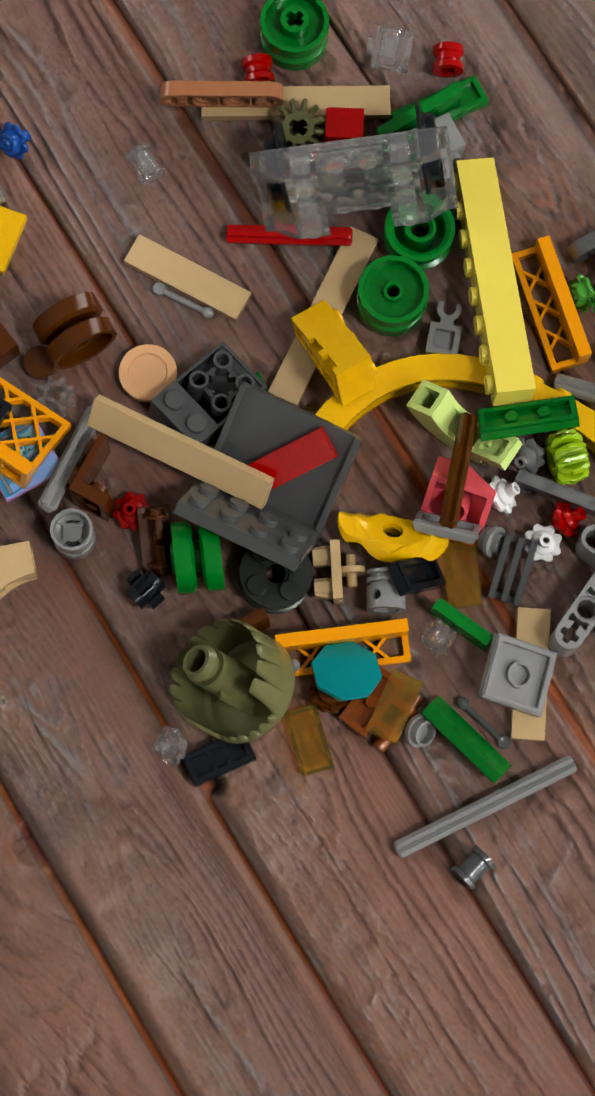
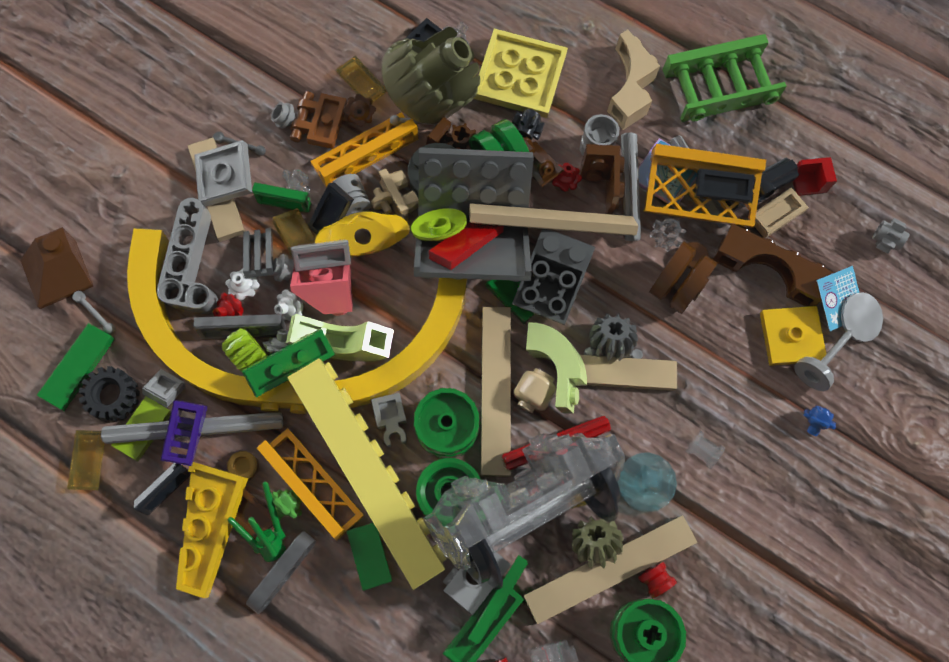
camera: 155 degrees right, 5 degrees down
(116, 664) = (520, 72): none -> light yellow plate
(146, 371) = (609, 282): light nougat piece -> none
(168, 303) = (613, 337): none -> dark grey gear
(218, 163) = (647, 482): none -> clear light blue tile
(221, 94) = (677, 537): nougat beam -> none
(228, 596) = (460, 133): none -> reddish brown gear
(240, 307) = (571, 371): none -> yellowish green arch
(286, 292) = (535, 390): none -> tan head
(307, 508) = (439, 224): none -> lime dish
(335, 351) = (471, 347): yellow wedge -> none
(343, 123) = (557, 560): red panel -> none
(346, 671) = (352, 123): teal piece -> none
(394, 706) = (307, 118): clear yellow tile -> none
(458, 470) = (327, 290): reddish brown axle -> none
(466, 739) = (246, 122): green tile -> none
(473, 867) = (208, 44): dark grey bush -> none
(485, 806) = (214, 89): light grey axle -> none
(521, 213) = (369, 556): none -> green tile

